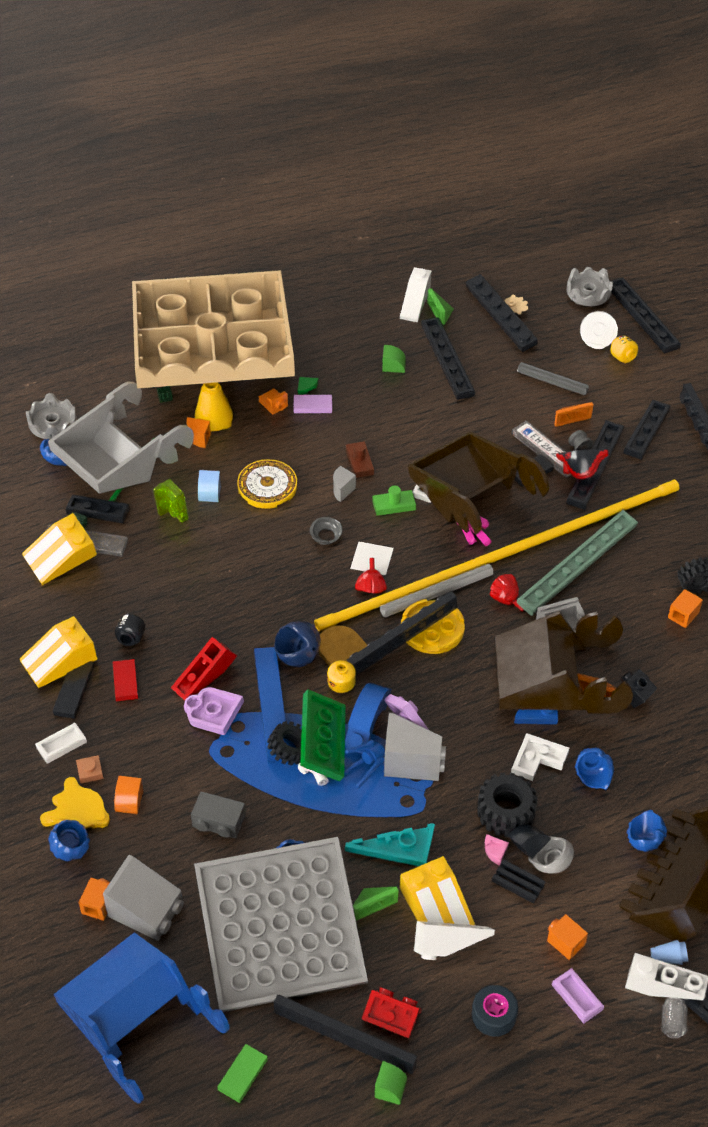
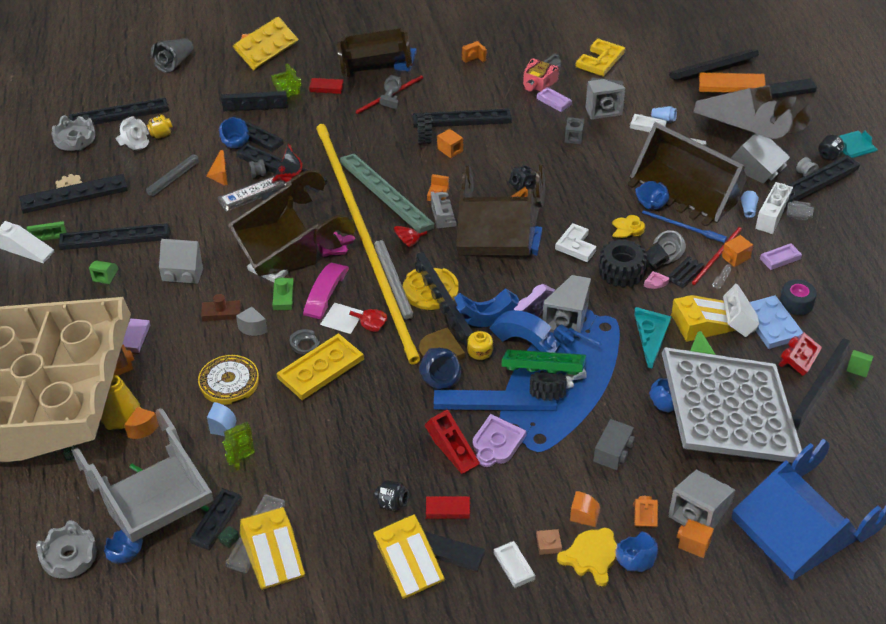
camera: 80 degrees left, 5 degrees down
(129, 845) = (645, 512): none -> orange bracket
(242, 1073) = (855, 452): bright green tile -> none
(293, 549) = (320, 366): none -> yellow plate
(394, 673) = (485, 313): none -> blue arch
(408, 410) = (180, 261): none -> light grey slope
(409, 531) = (322, 289): none -> dark pink slope
(448, 982) = (775, 323): none -> light blue plate
(513, 922) = (721, 279): none -> clear piece
(557, 916) = (715, 257): none -> red axle
(587, 812) = (628, 226): none -> yellow plate
(594, 768) = (595, 211): blue hair -> none
(598, 904) = (708, 233): none -> blue piece
(604, 608) = (438, 184): none -> orange bracket
(628, 408) = (234, 133): none -> blue hair

